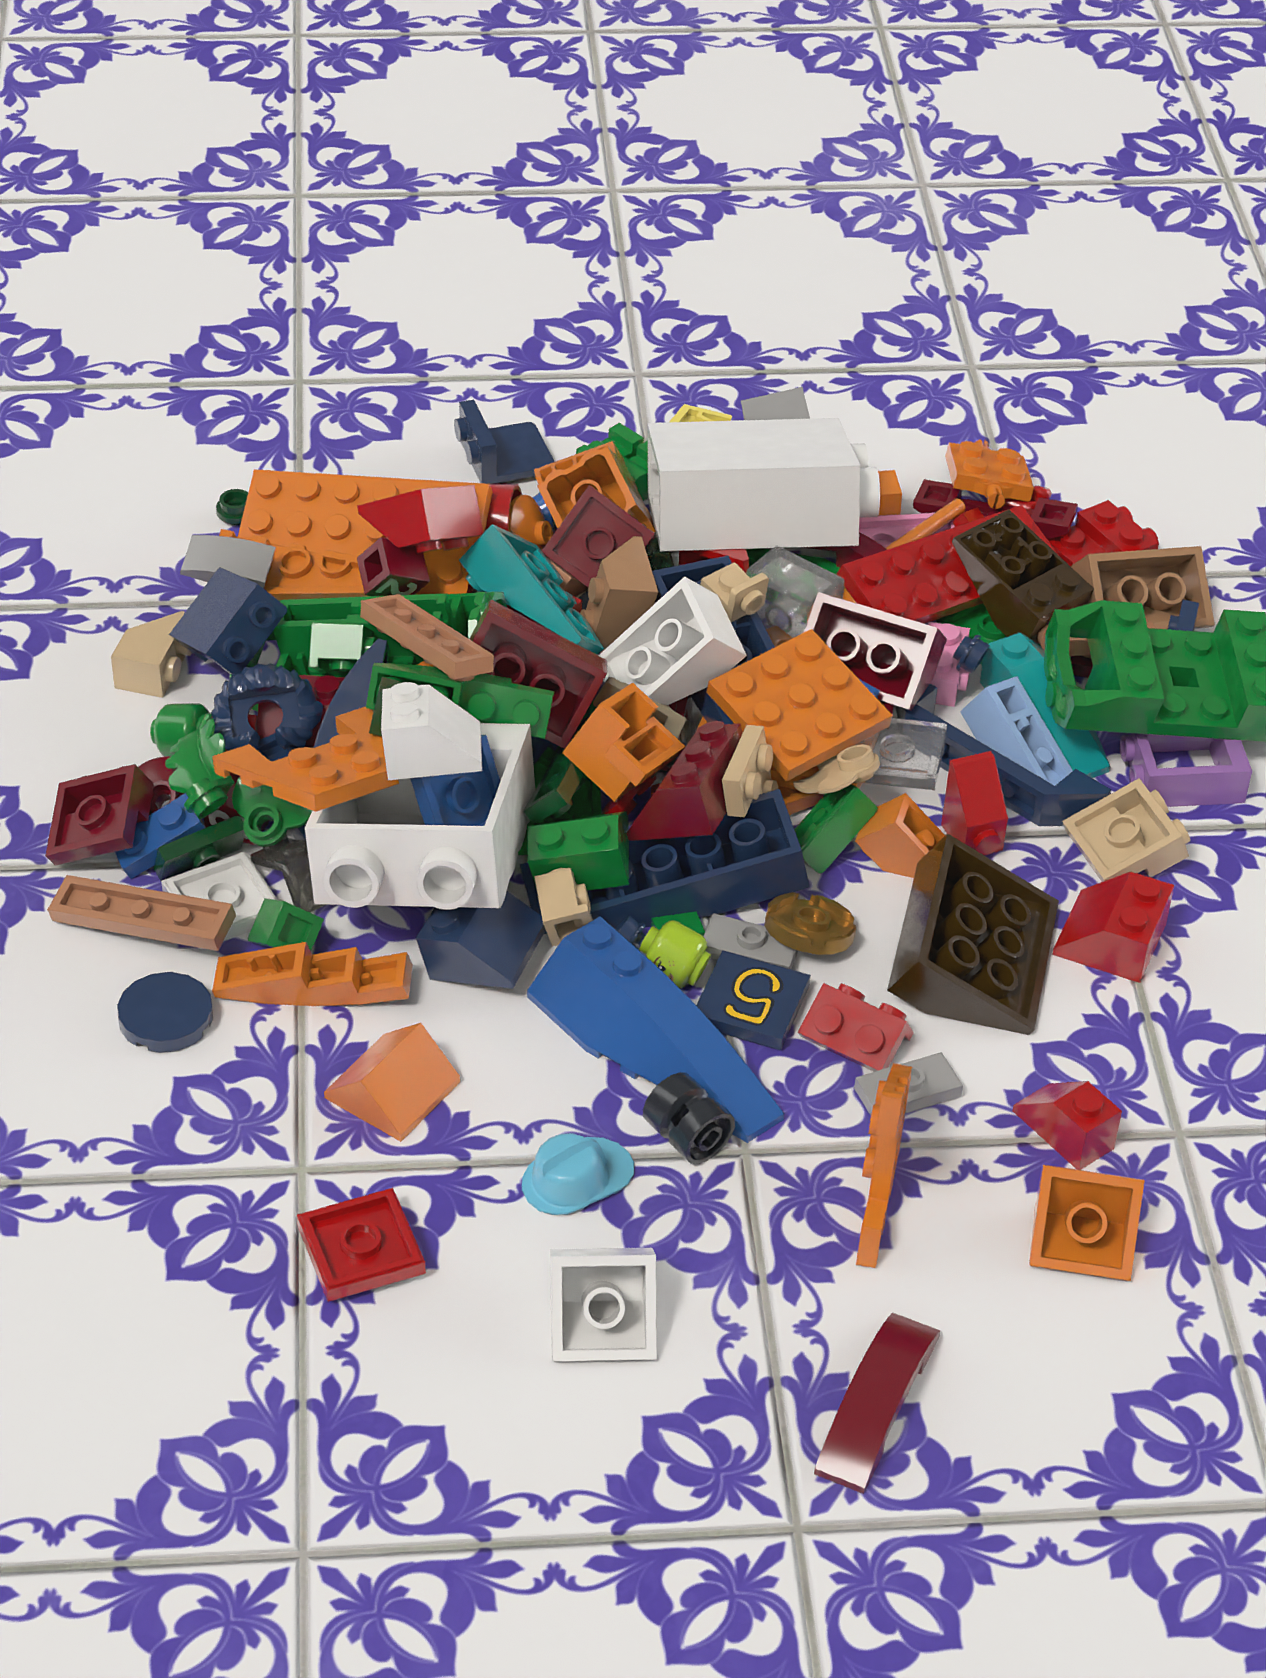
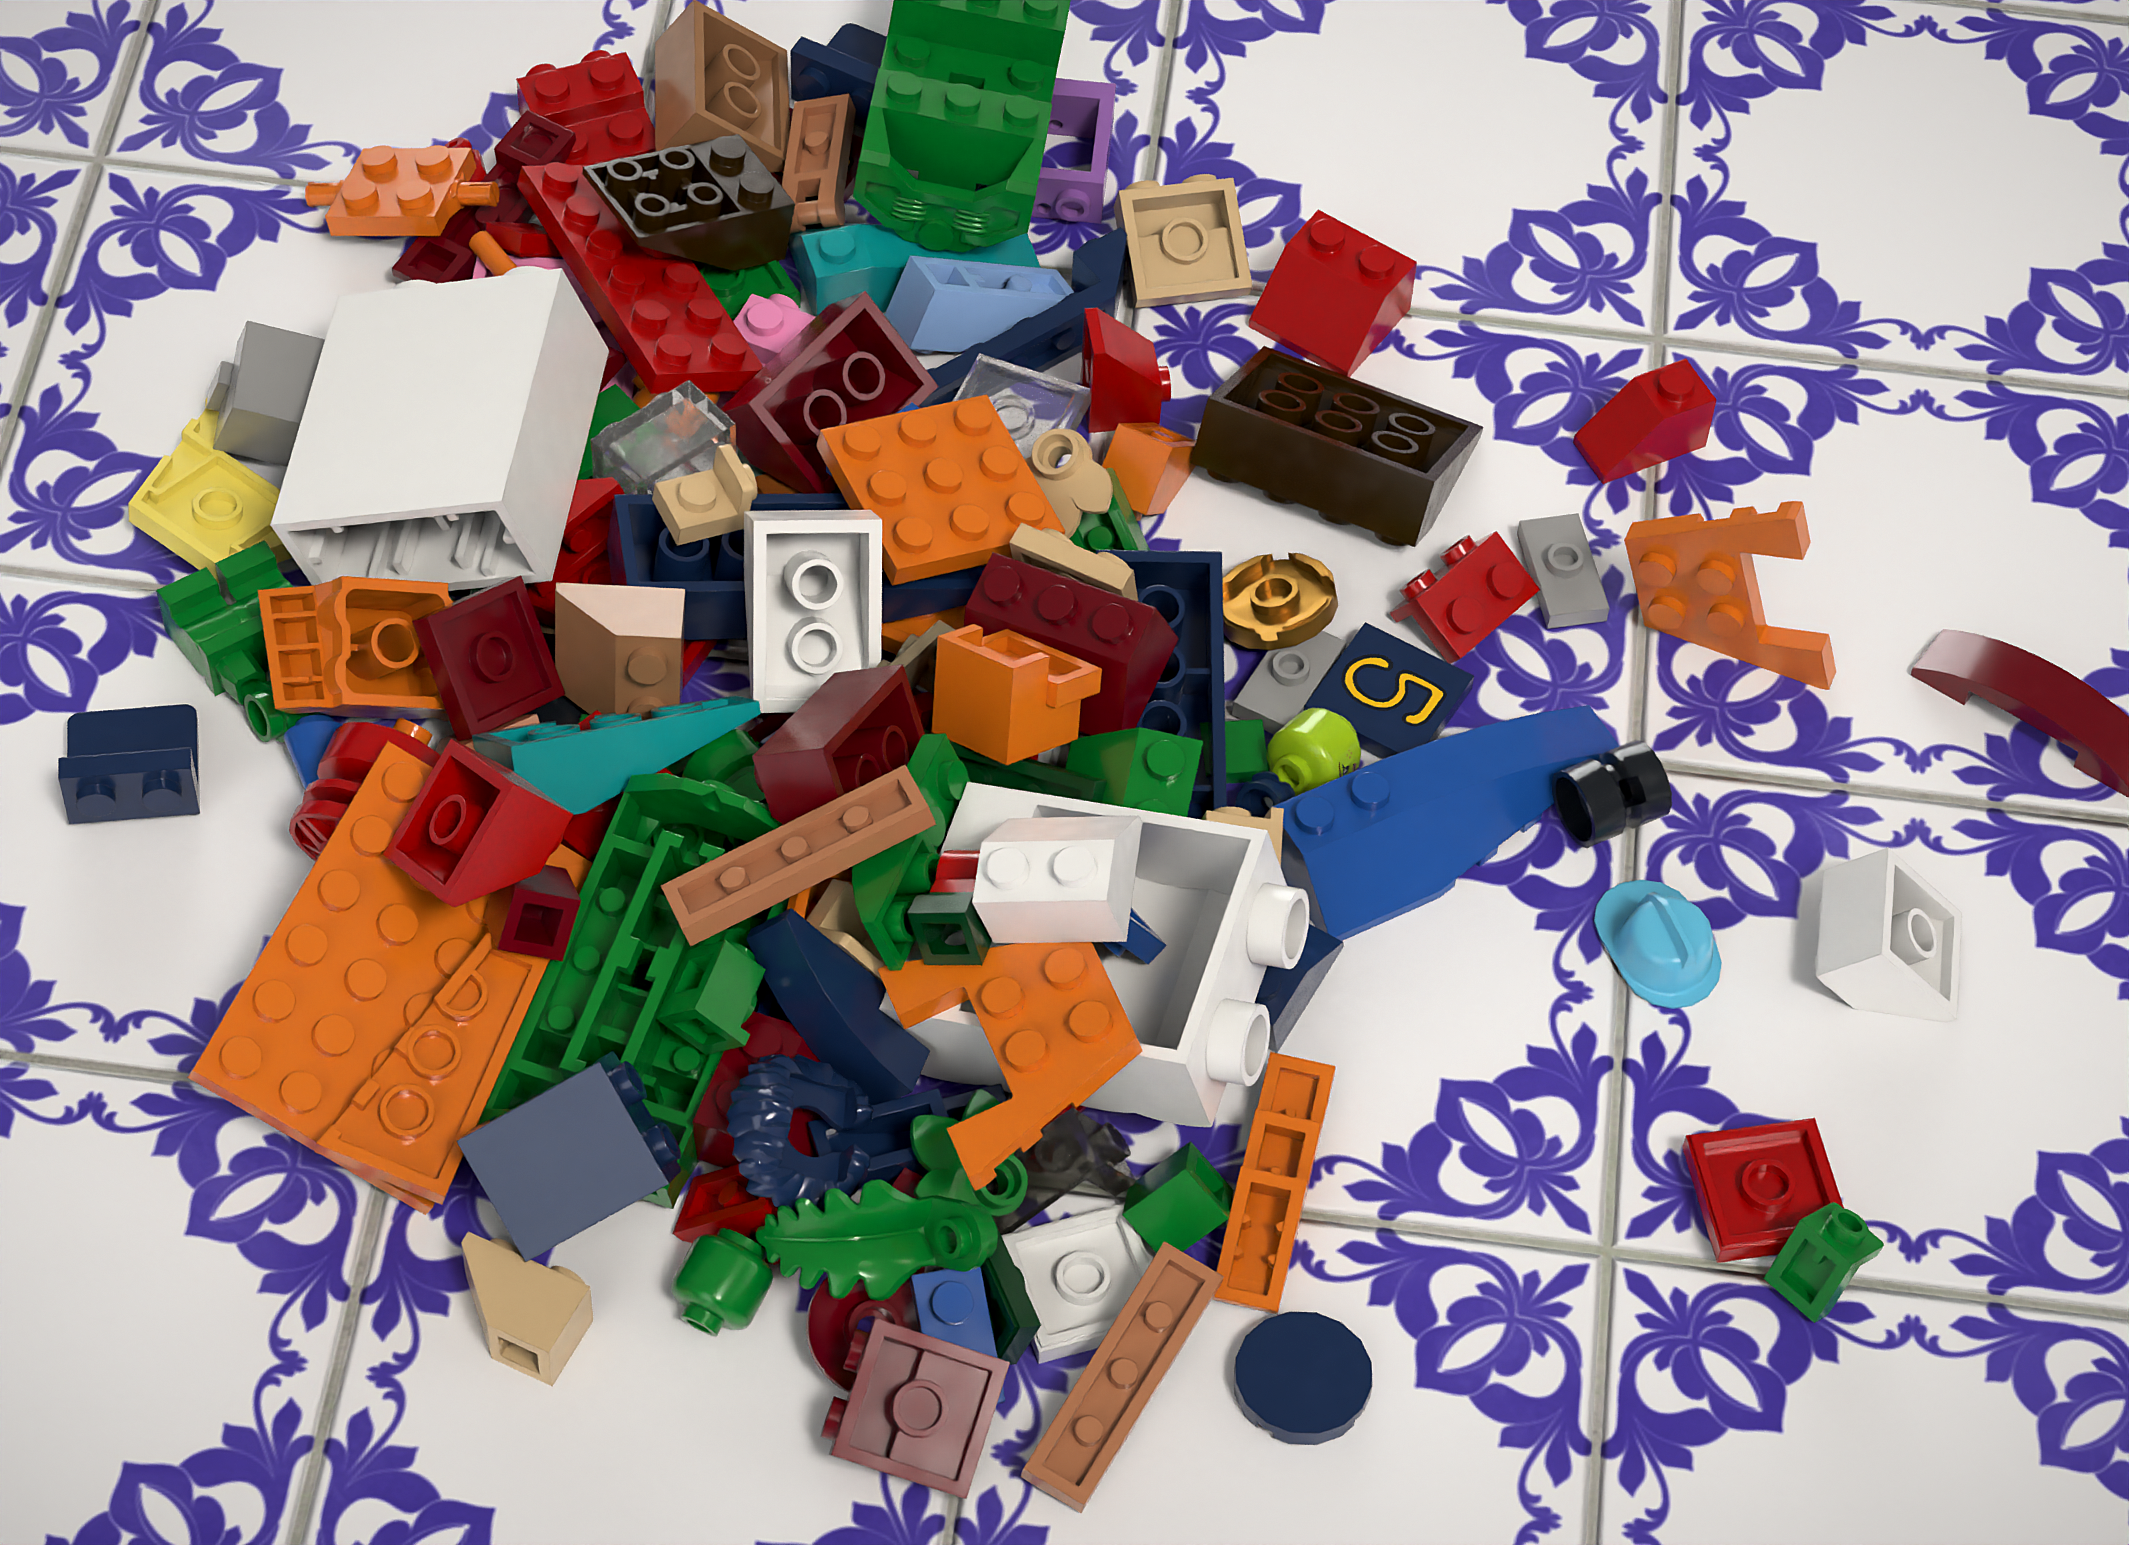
camera: 80 degrees left, 10 degrees up
(231, 506) = (152, 1141): dark green plate -> none
(239, 556) = (421, 1136): light grey slope -> none
(305, 1270) = (1822, 1259): none -> green bracket
(396, 1081) = (1475, 1119): orange slope -> none
(970, 653) = (829, 288): dark blue plate -> none
(1086, 1222) = (1821, 452): orange slope -> none

